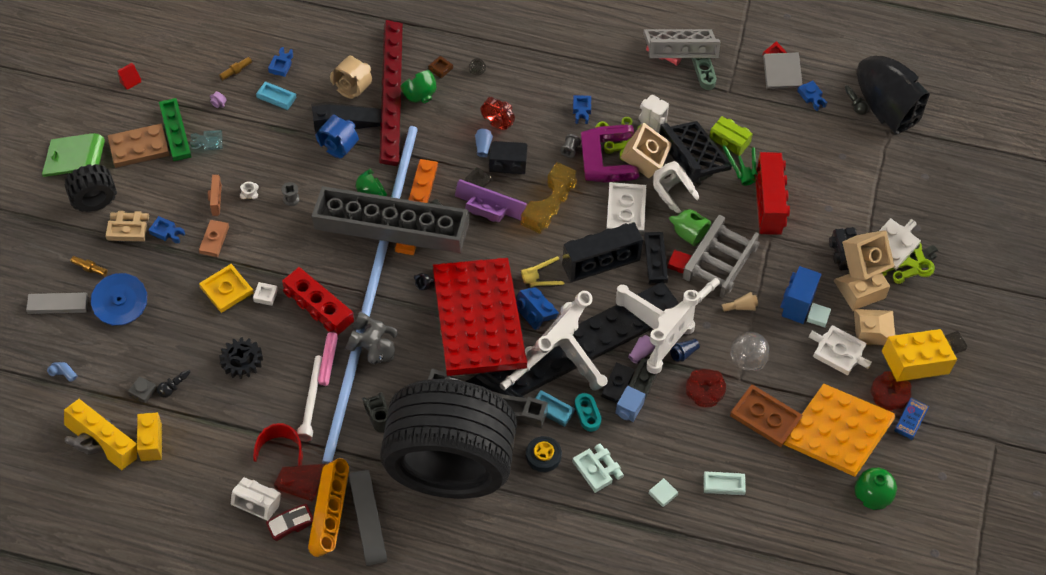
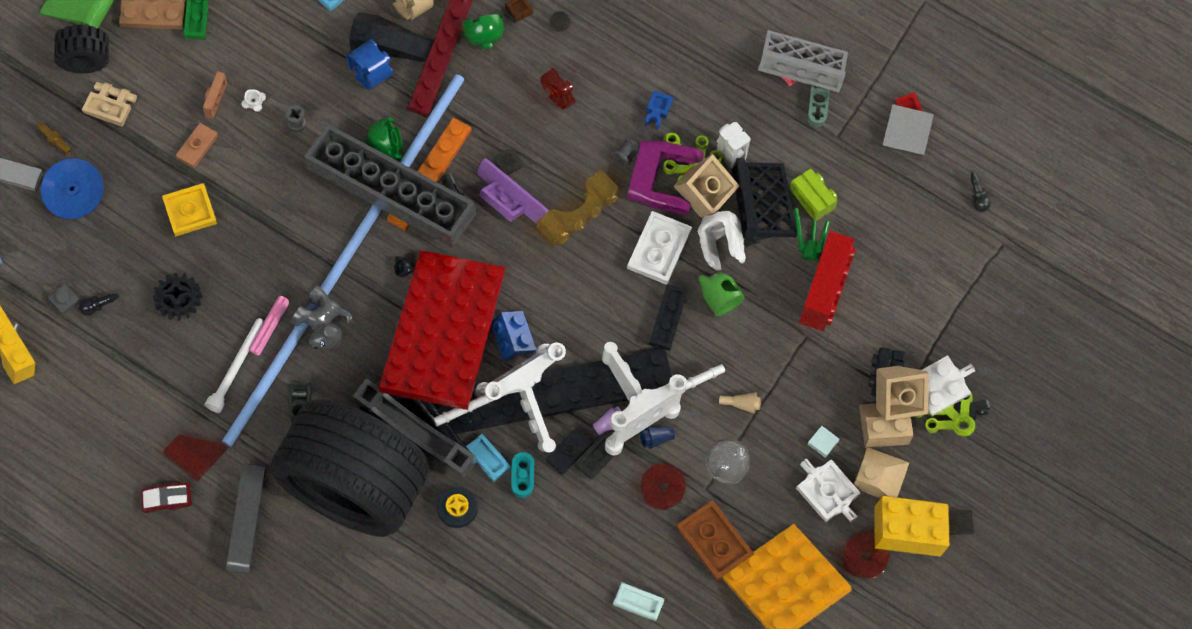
camera: 15 degrees right, 10 degrees up
(149, 436) = (52, 357): yellow brick -> none
(164, 228) = (148, 119): blue plate -> none
(209, 139) = (231, 26): clear light blue plate -> none
(255, 498) = (138, 461): white brick -> none
(265, 294) = (228, 229): white plate -> none
(277, 431) = (182, 392): red piece -> none
(328, 303) = (269, 226): red brick -> none
(328, 507) = (200, 500): light orange beam -> none
(483, 140) = (531, 116): medium blue cone -> none
(508, 157) = (551, 145): black bracket -> none
(531, 274) = (522, 295): light yellow plant -> none
(592, 469) = (502, 542): light aqua plate -> none
(602, 251) = (608, 294): black brick -> none
(630, 404) = (571, 480): medium blue brick -> none
(663, 492) = (568, 591): light aqua tile -> none
(678, 261) = (694, 329): red tile -> none
(710, 242) = (736, 317): light grey fence -> none
(800, 294) = (809, 413): blue brick -> none
(811, 93) = (931, 167): blue plate -> none
(892, 92) = (1018, 197): black panel -> none
(911, 418) = (874, 594): blue tile -> none

